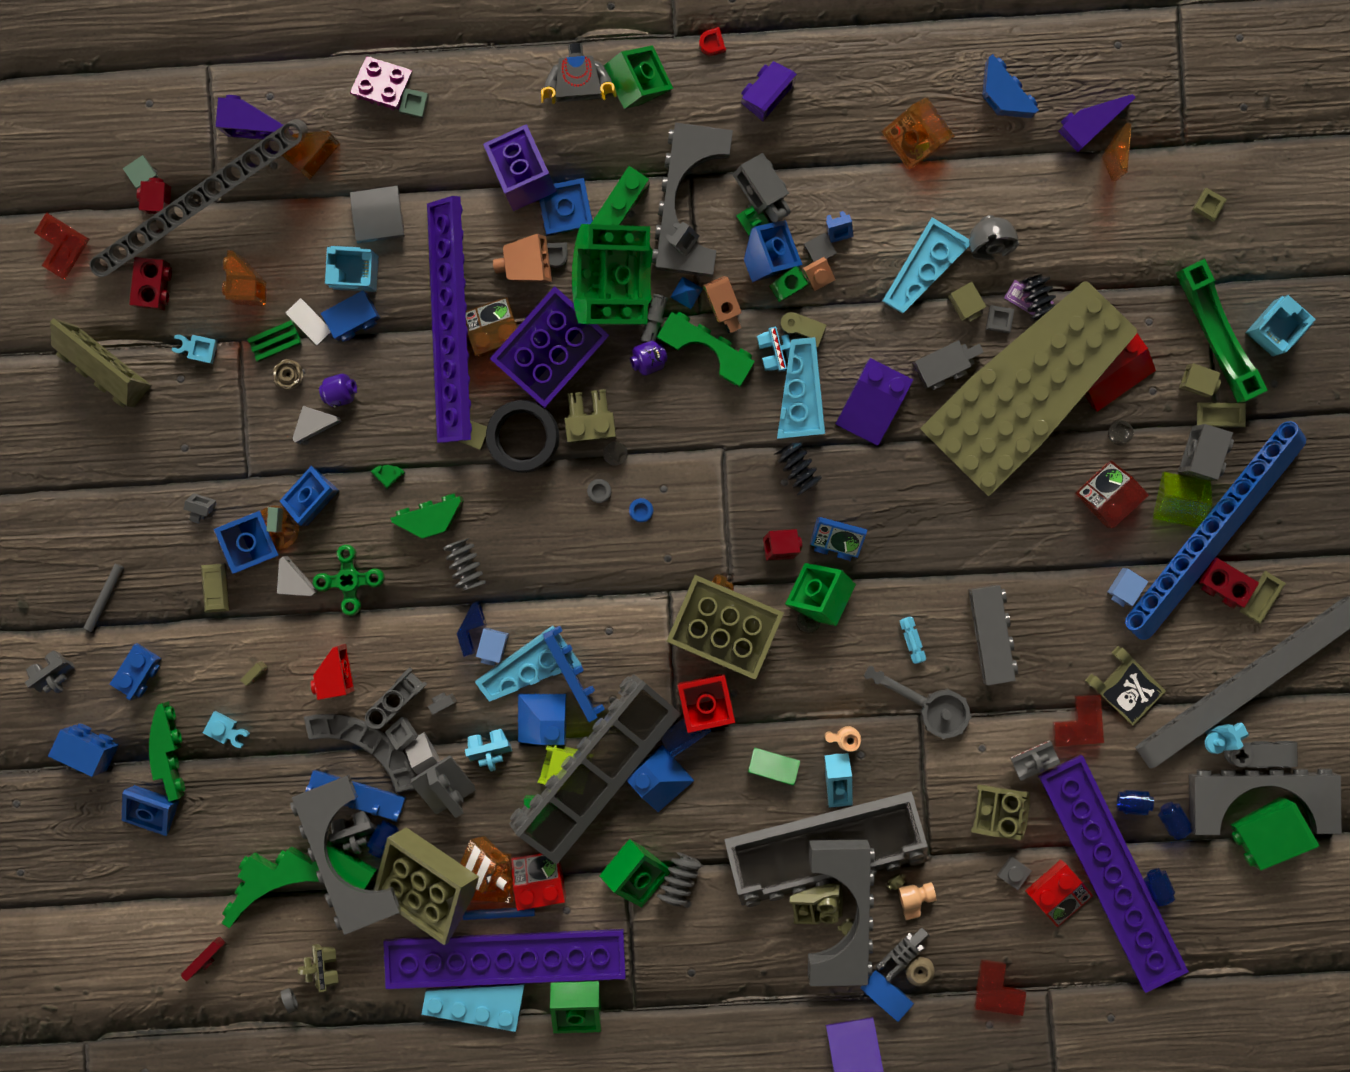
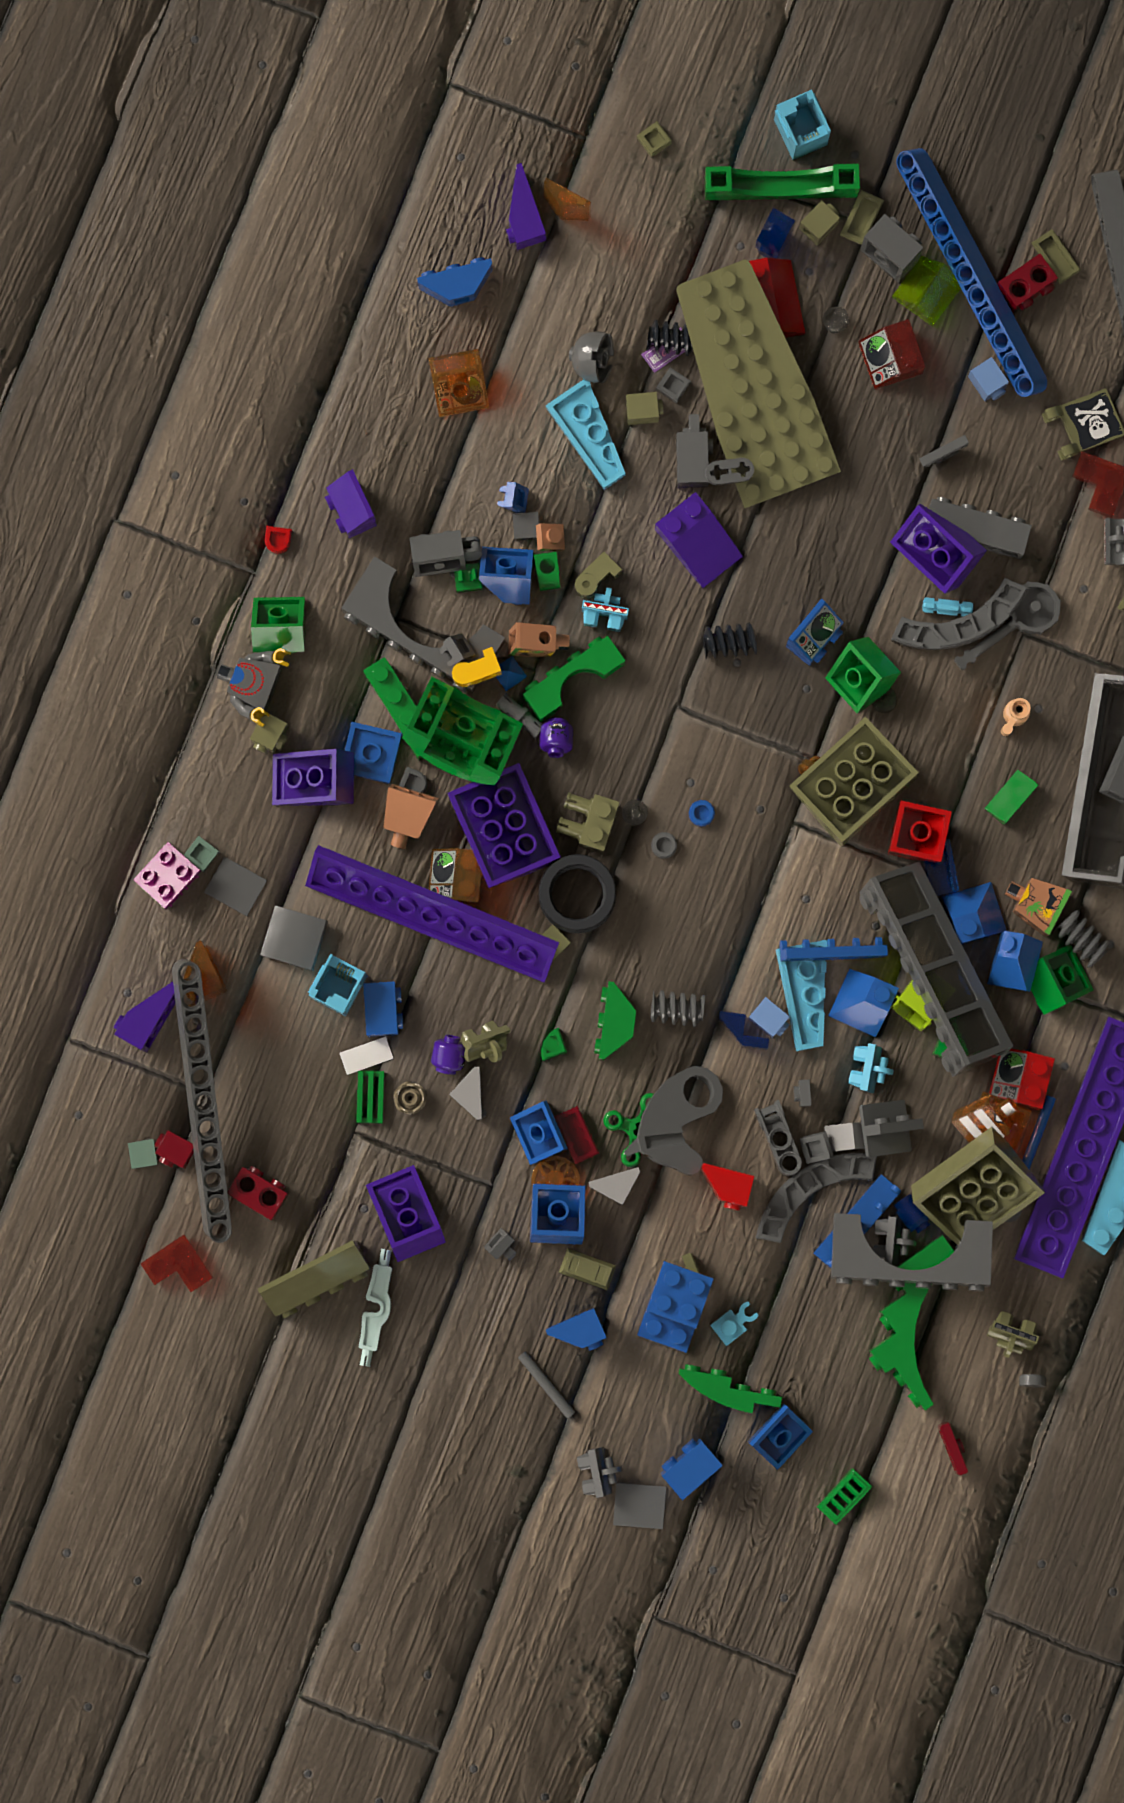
camera: 65 degrees left, 5 degrees down
(40, 719) = (639, 1505): none -> dark grey window
(113, 425) = (372, 1321): none -> light aqua piece
(136, 671) = (635, 1386): blue bracket -> none
(143, 884) = (865, 1487): none -> green slope
(154, 604) = (581, 1330): none -> blue slope
(189, 415) = (405, 1213): none -> dark purple slope
(198, 348) = (344, 1173): medium azure plate -> none
(213, 676) = (675, 1306): none -> blue bracket
(242, 282) = (301, 1094): clear orange slope -> none
(274, 519) = (548, 1173): sand green tile -> none
(320, 528) = (576, 1135): none -> dark red plate
(353, 596) = (663, 1118): none -> dark grey animal
(359, 419) = (487, 1044): none -> olive hips
(400, 145) = (235, 886): none -> dark grey window
(539, 114) = (270, 736): none -> olive brick
(632, 832) = (1015, 961): none -> blue slope
(671, 263) = (471, 673): none -> yellow leg
(692, 829) = (1038, 903): none -> nougat torso
(782, 544) = (798, 690): dark red brick -> none
(802, 392) = (662, 606): medium azure wing -> none
(838, 780) = (1053, 739): medium azure slope -> none
(900, 664) = (964, 629): none -> dark grey tile
(949, 396) = (730, 477): none -> dark grey beam
(958, 609) = (938, 548): none -> dark purple slope
(1046, 578) = (944, 452): none -> dark grey tile
(1171, 346) = (775, 234): none -> clear blue slope

